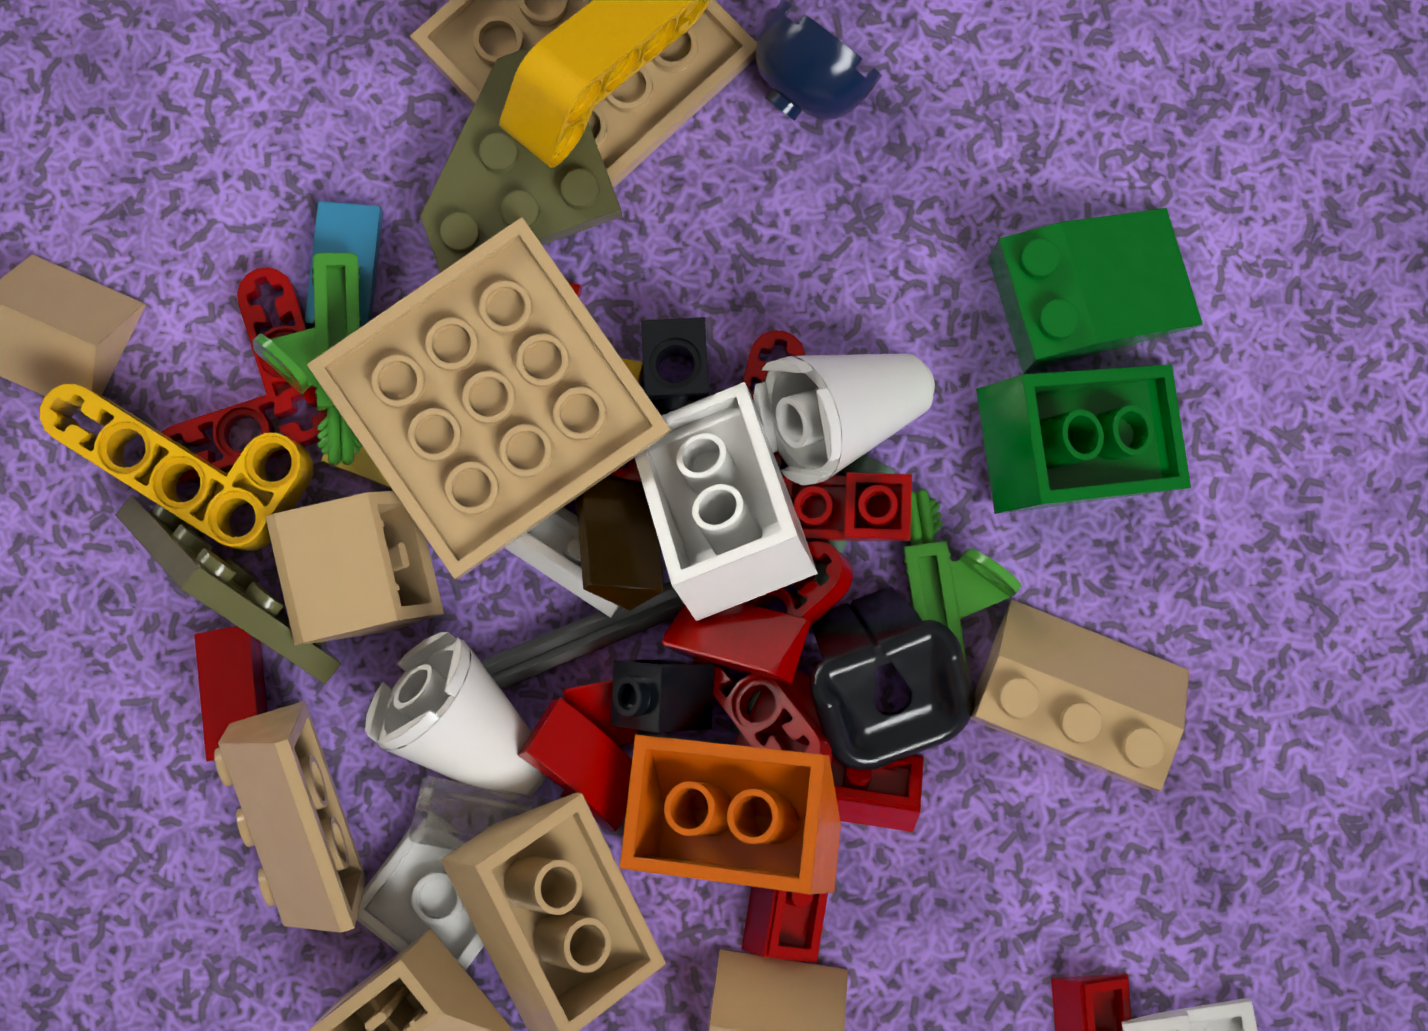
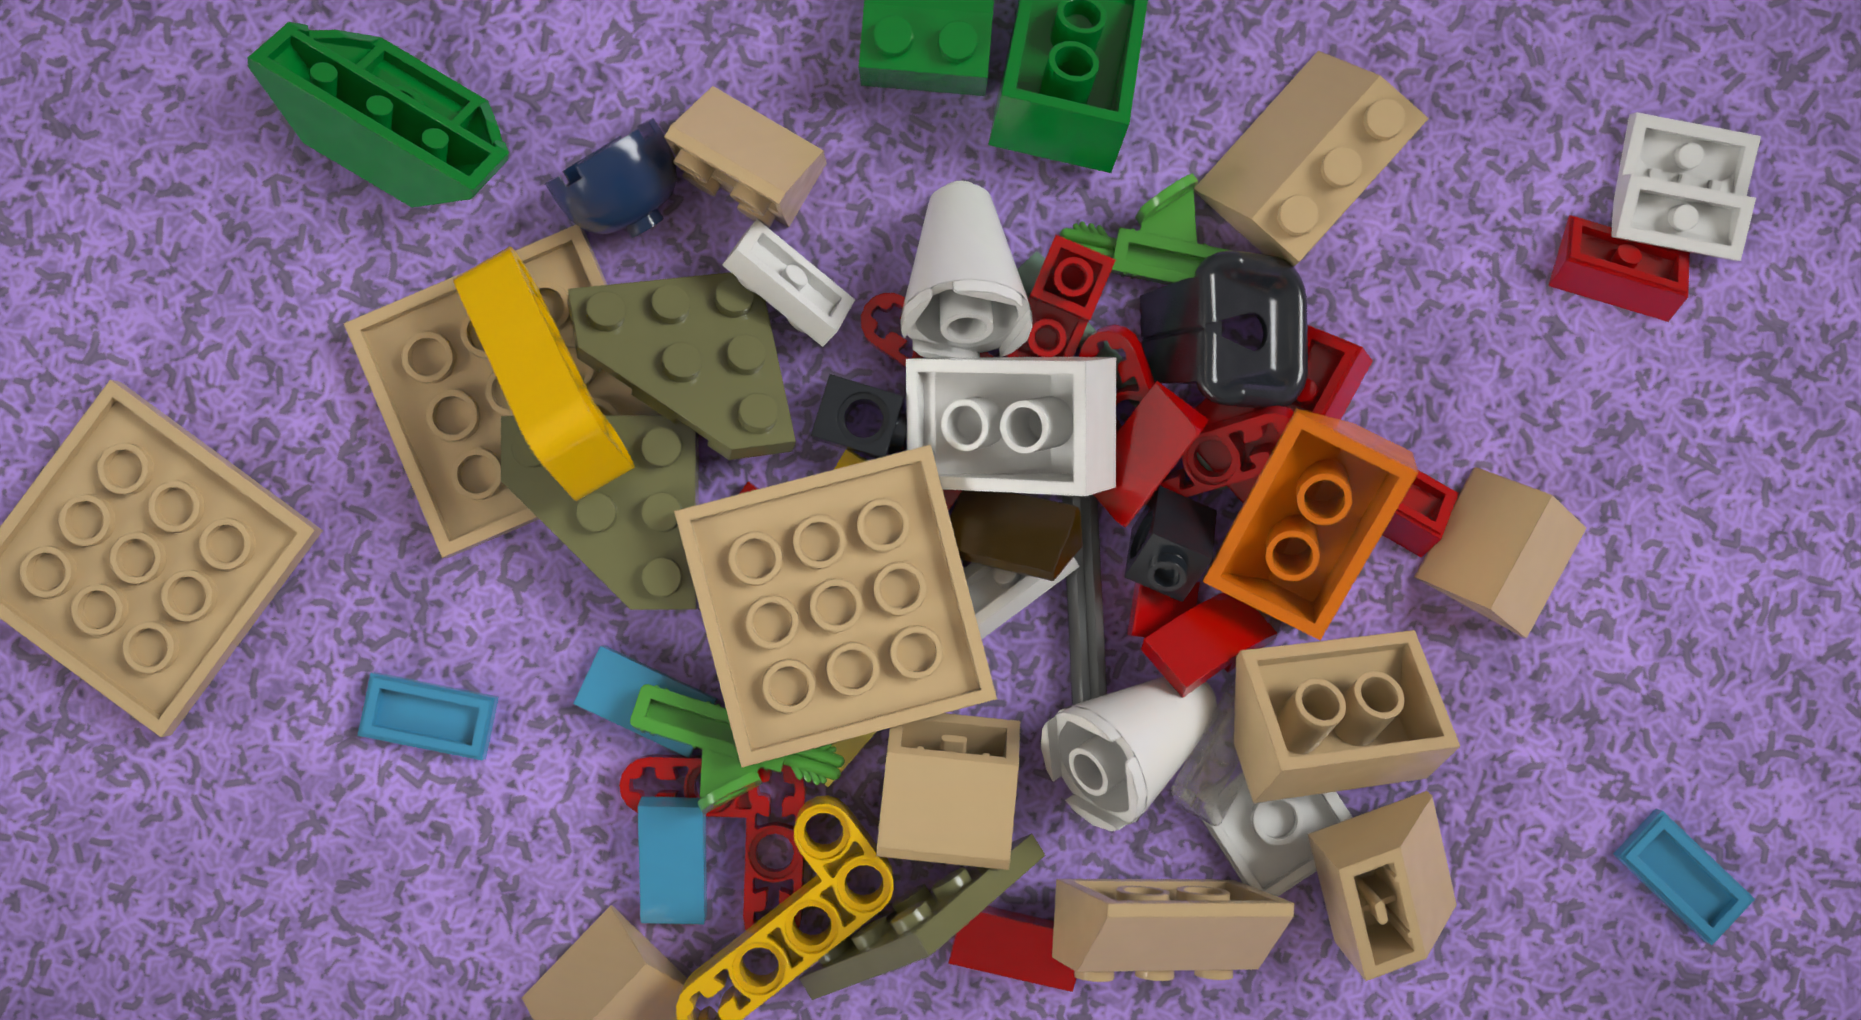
camera: 70 degrees left, 5 degrees up
(201, 341) = (672, 861): none -> dark azure tile
(262, 78) = (428, 716): none -> dark azure tile
(675, 187) = (693, 354): none -> olive plate
(777, 251) = (789, 283): none -> white plate
(878, 184) = (747, 155): none -> tan slope

